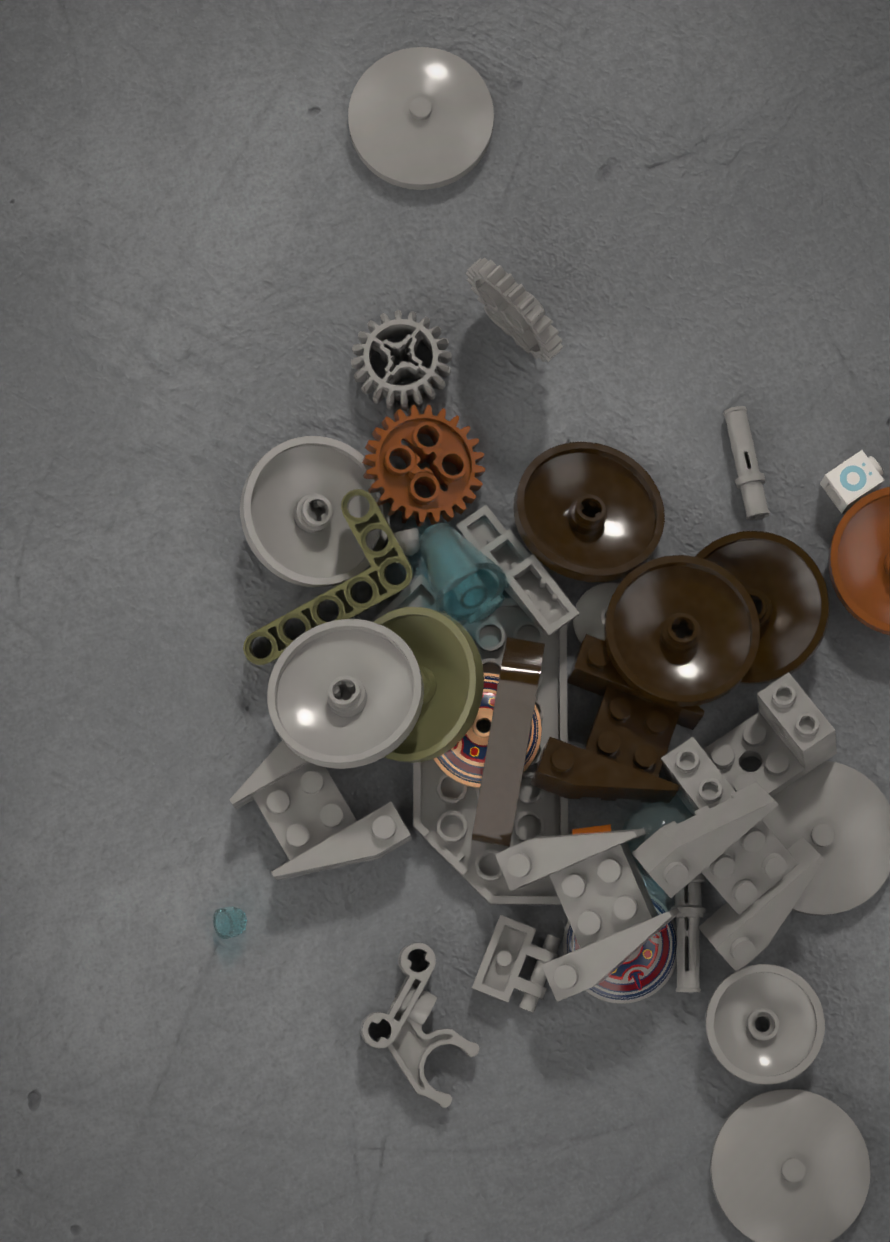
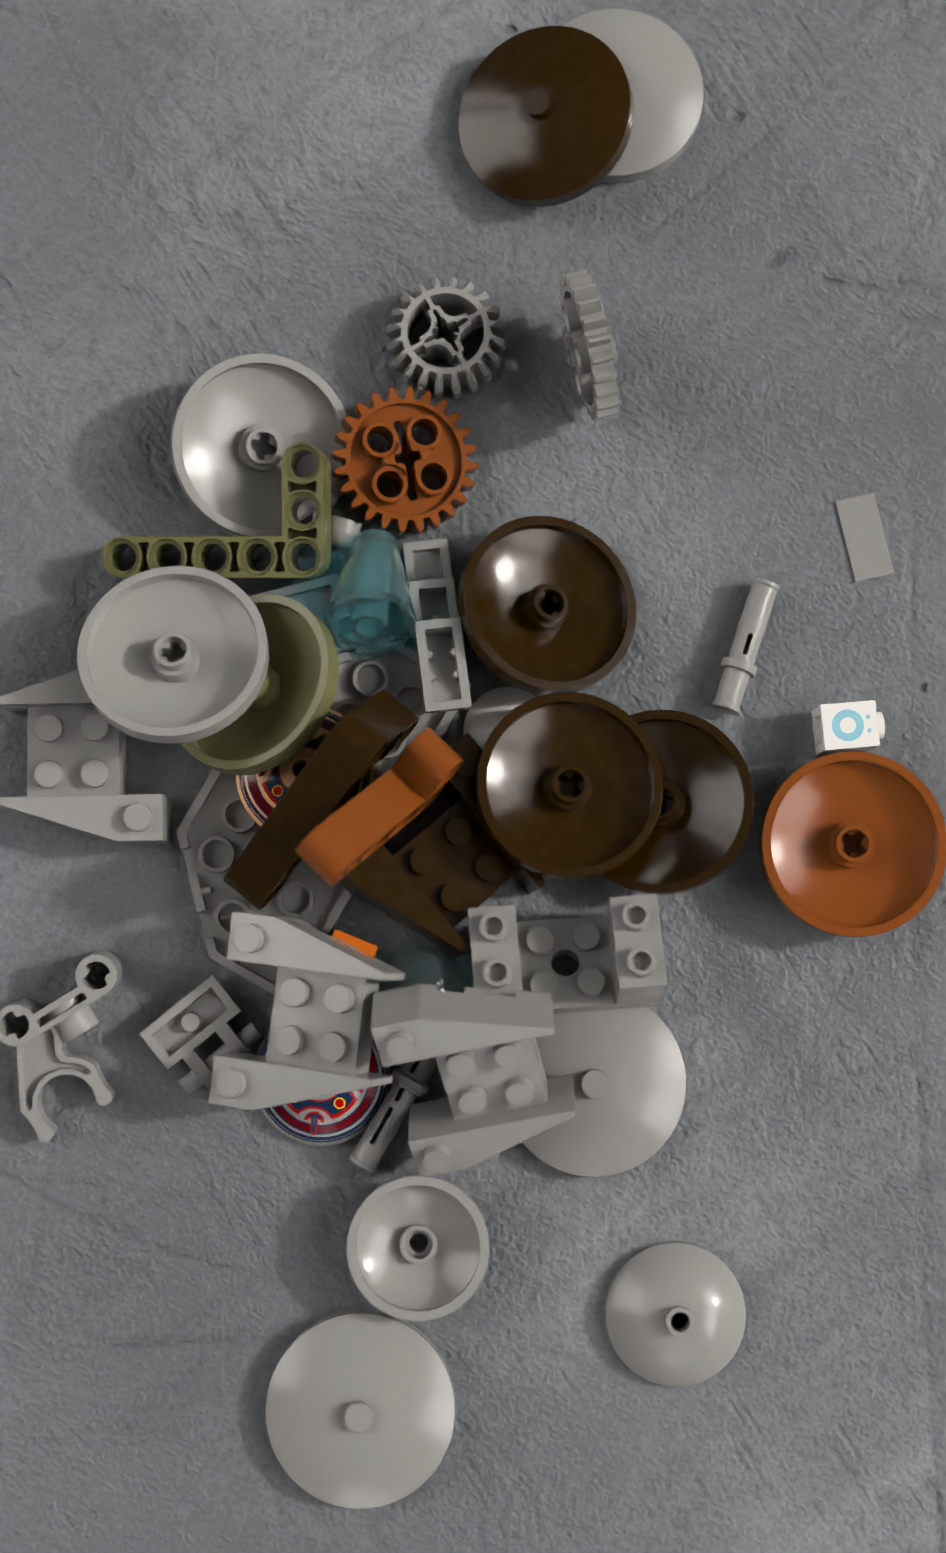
camera: 25 degrees right, 5 degrees up
(382, 161) = (546, 116): none -> dark brown dish
(561, 716) = (380, 808): none -> dark orange beam
(785, 338) = (864, 537): none -> light grey sticker

